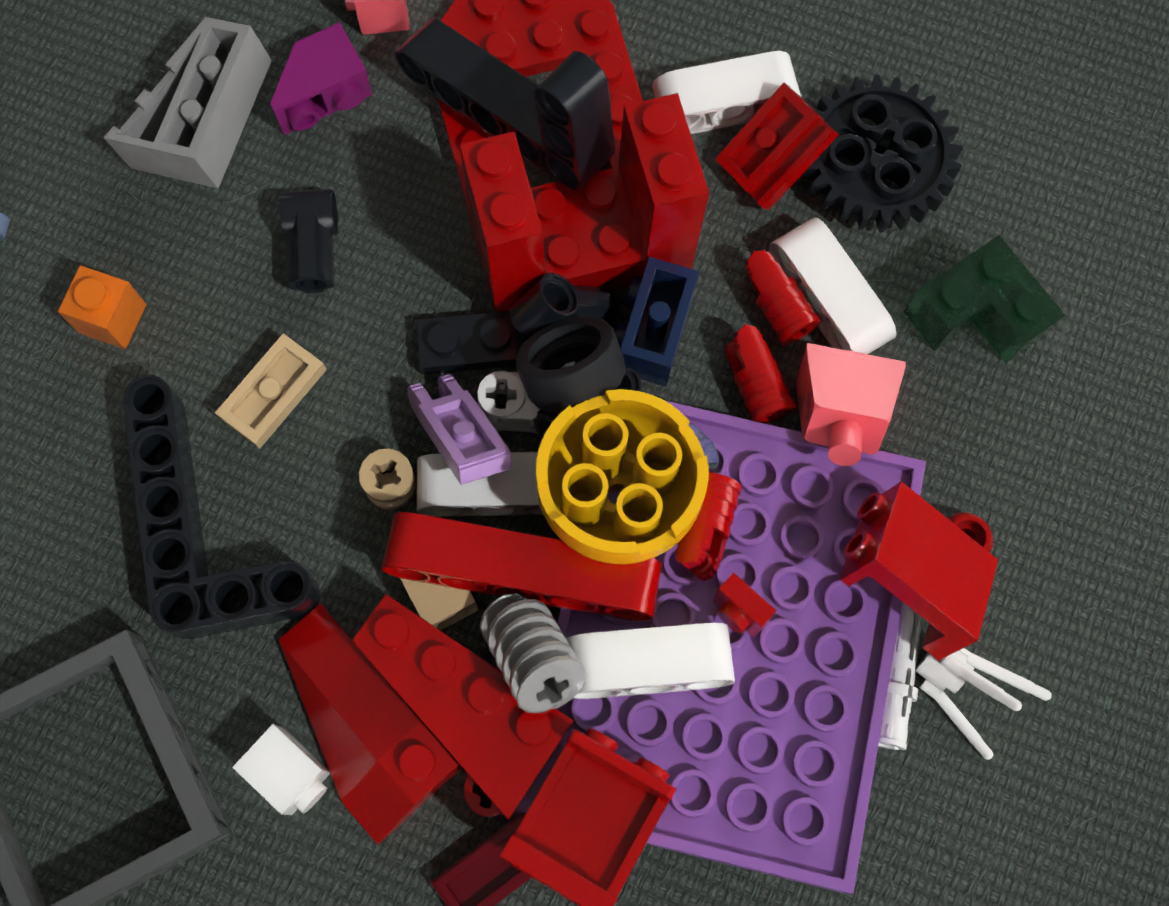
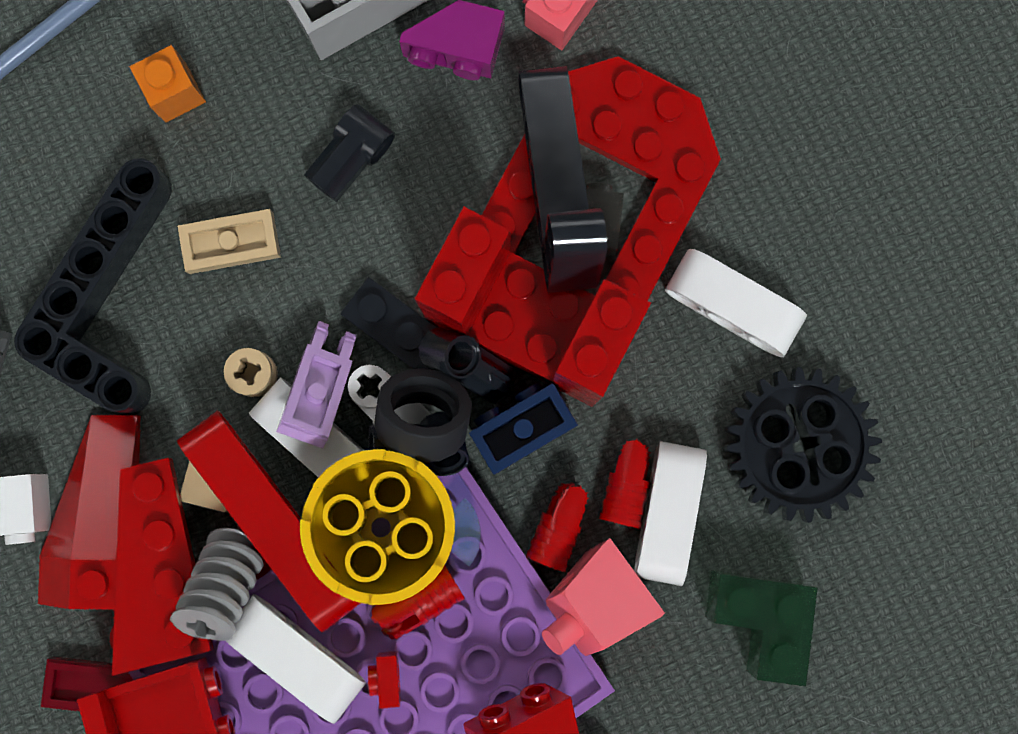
camera: 50 degrees right, 10 degrees up
(776, 146) = (729, 376): red plate -> none

